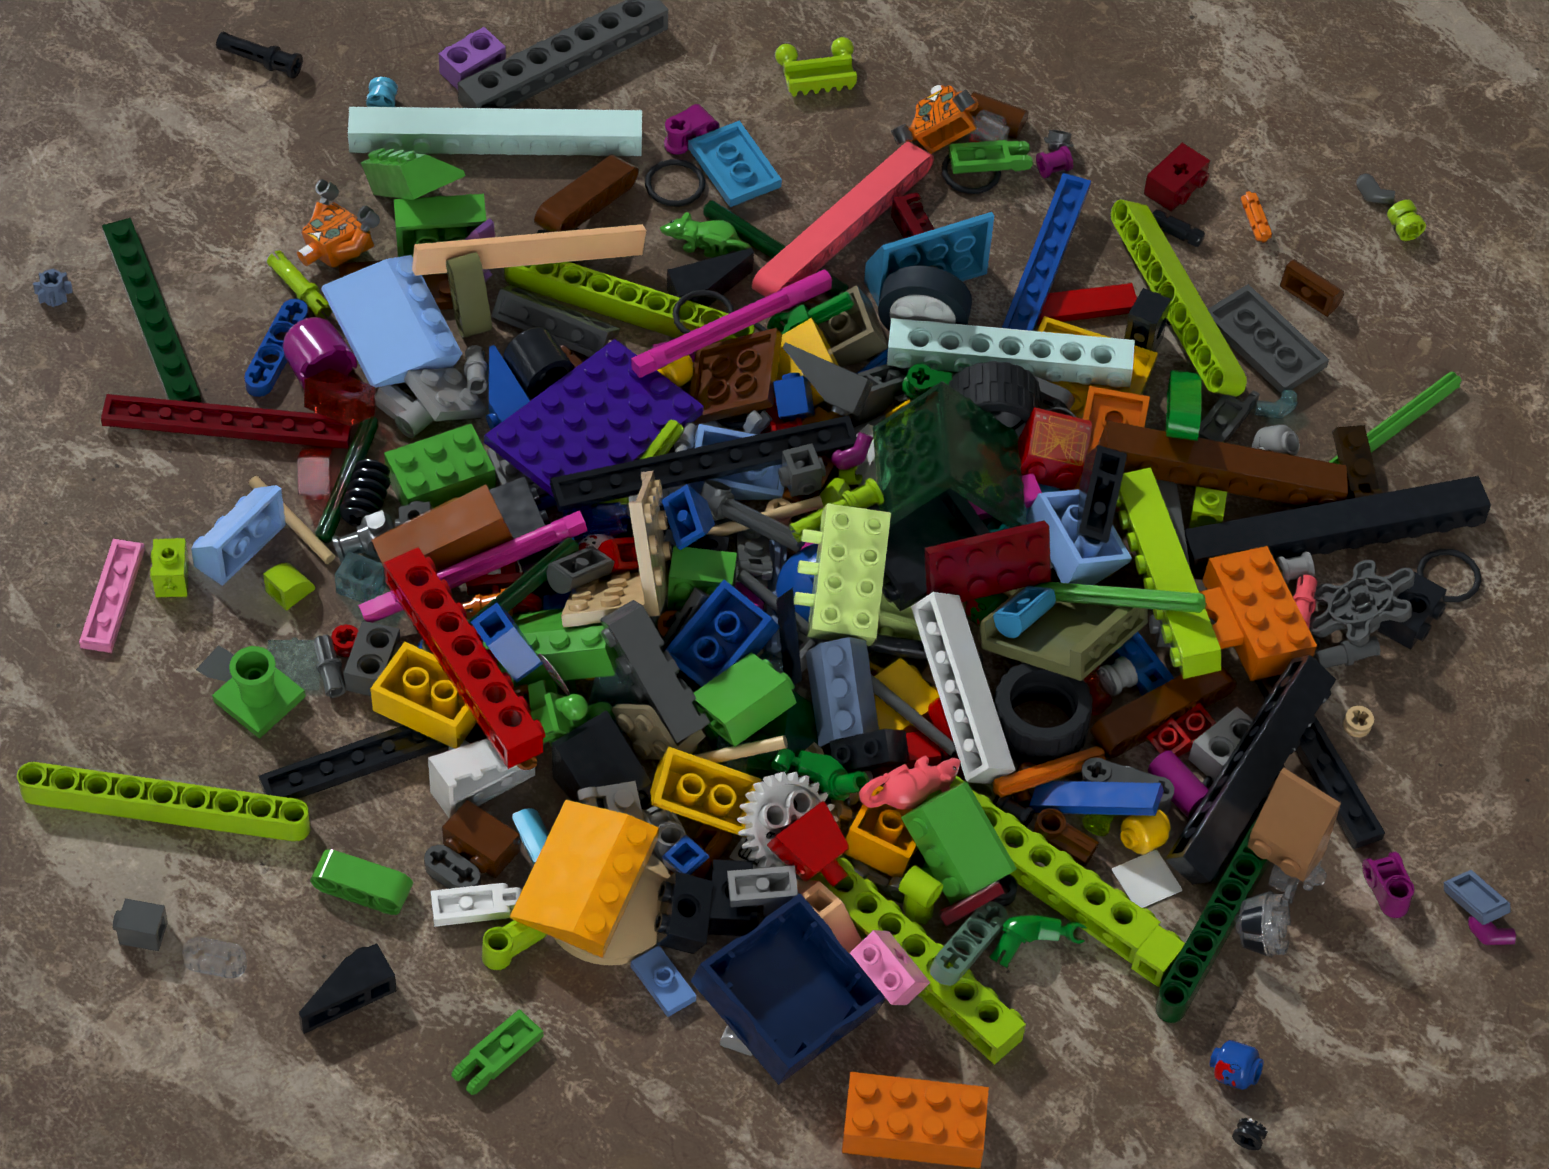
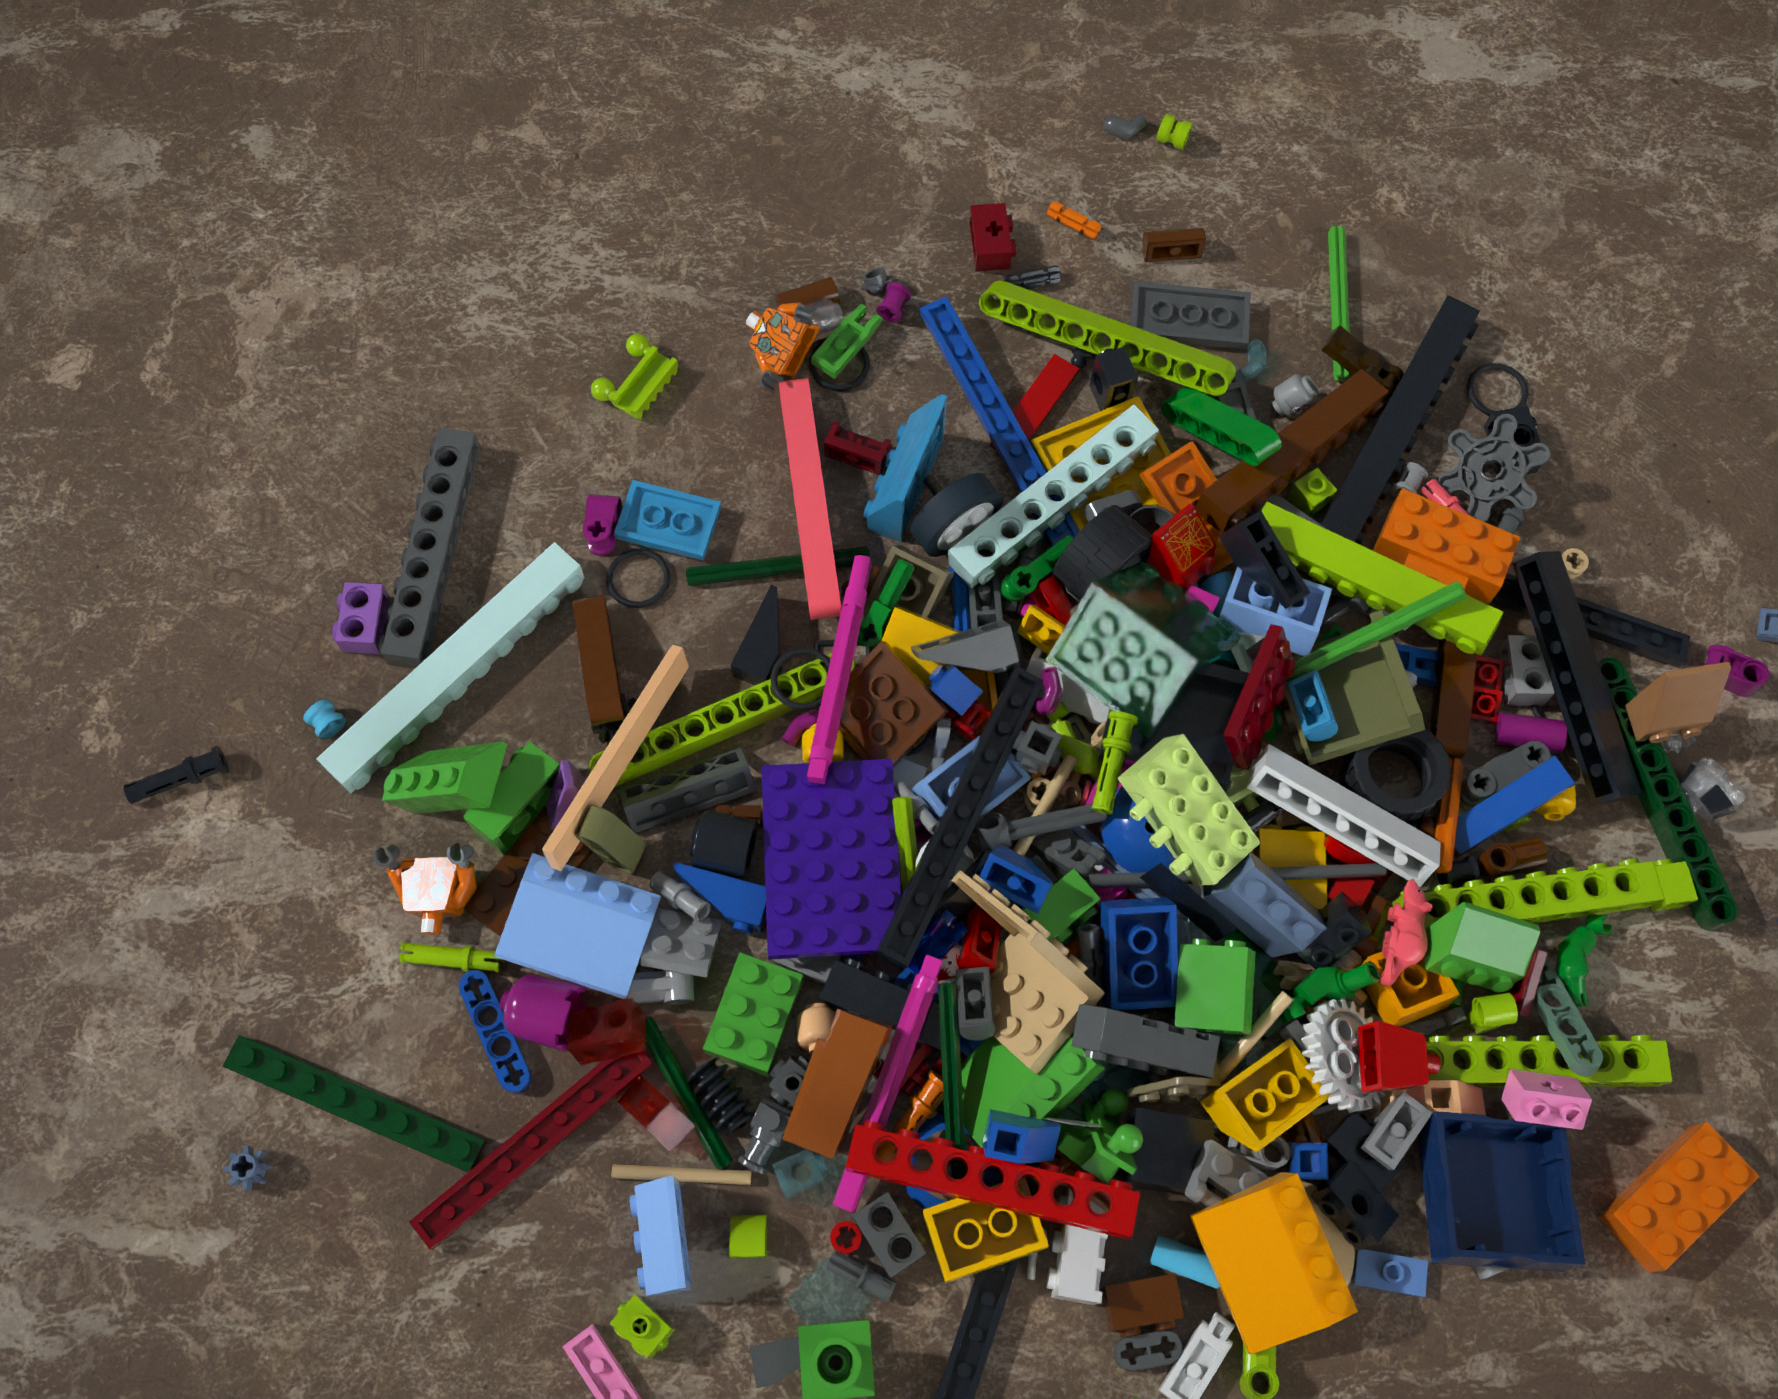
camera: 45 degrees left, 15 degrees up
(713, 236) = (722, 598): bright green animal -> none
(1147, 879) = (1586, 831): white sticker -> none

